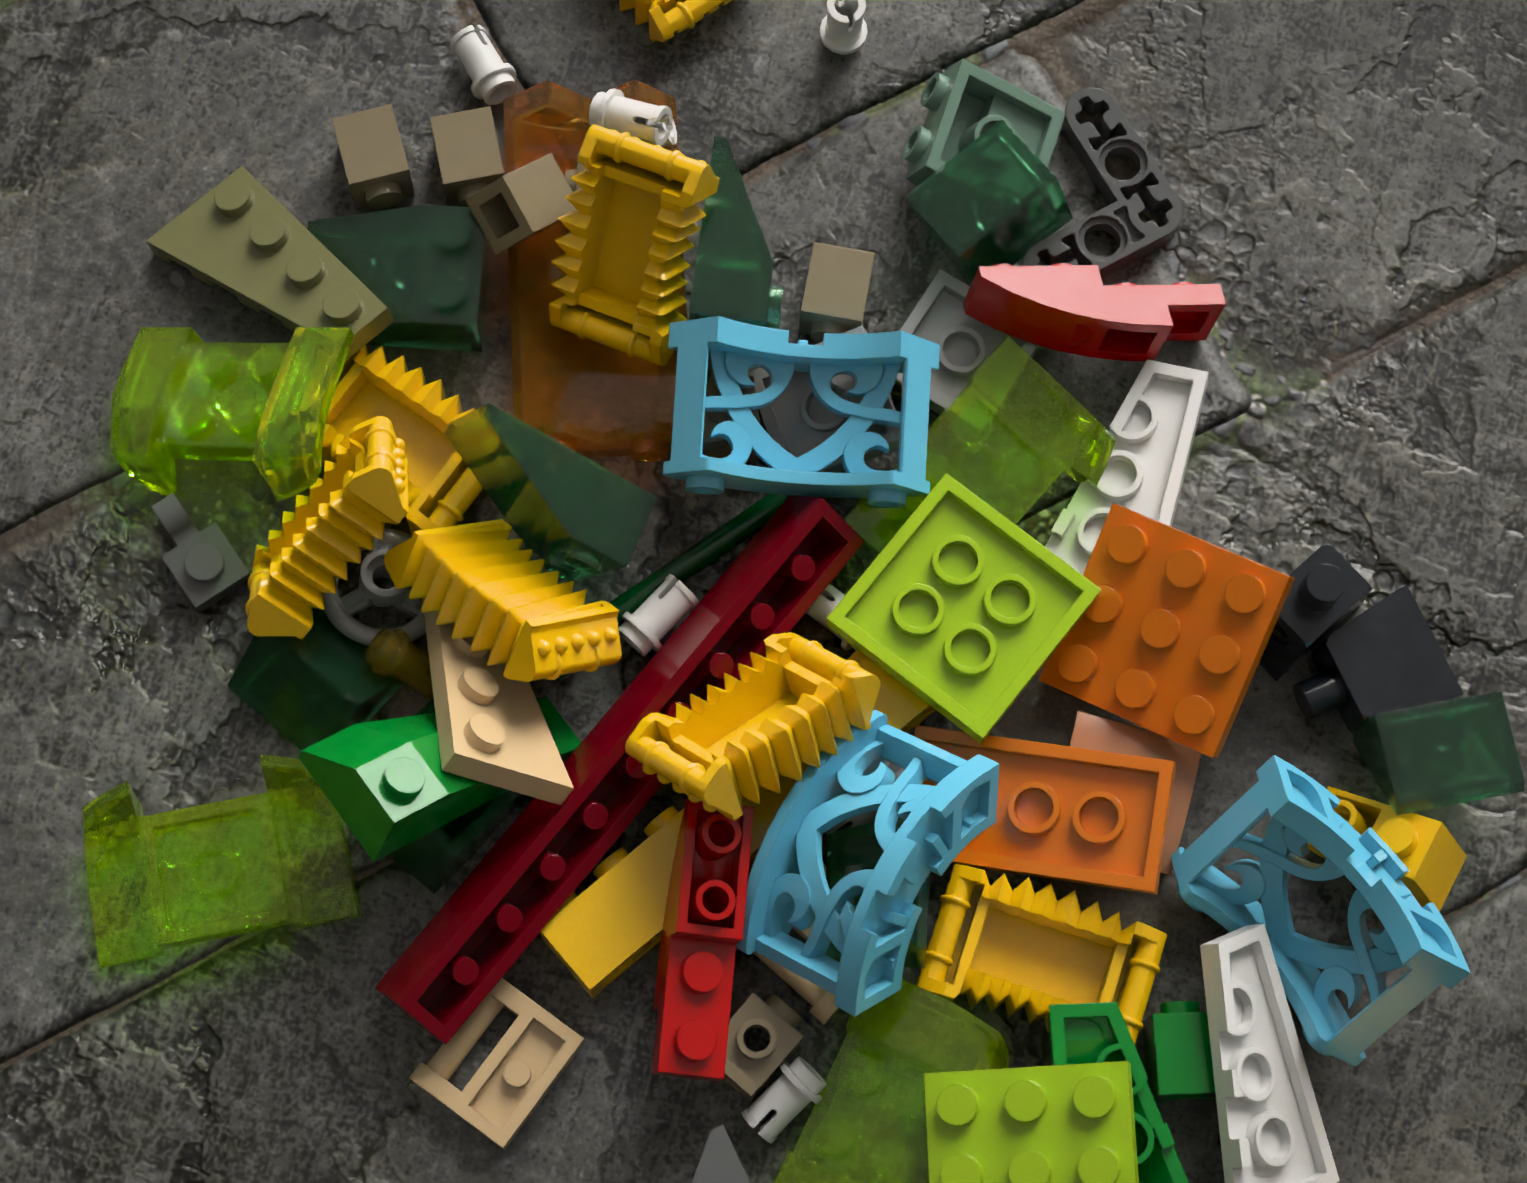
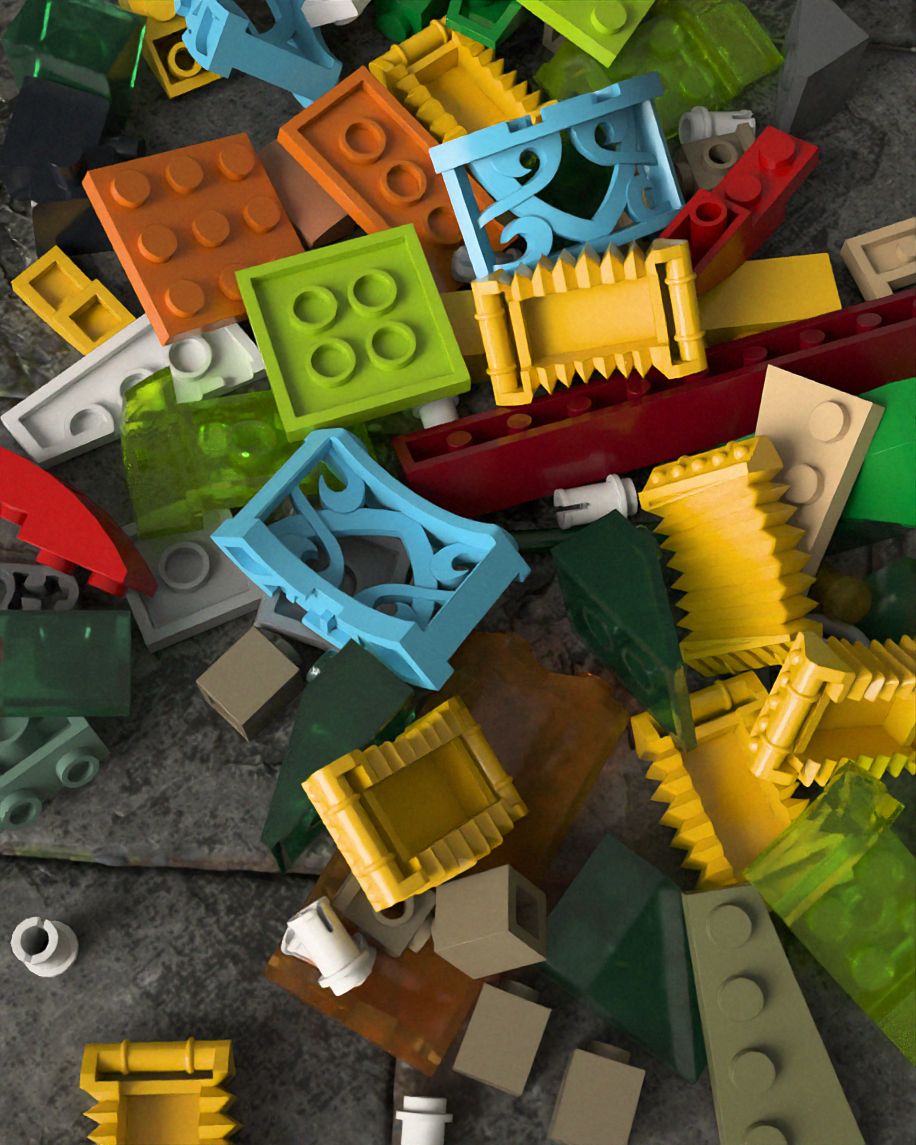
camera: 145 degrees left, 5 degrees down
(1254, 528) = (70, 302): none -> yellow slope

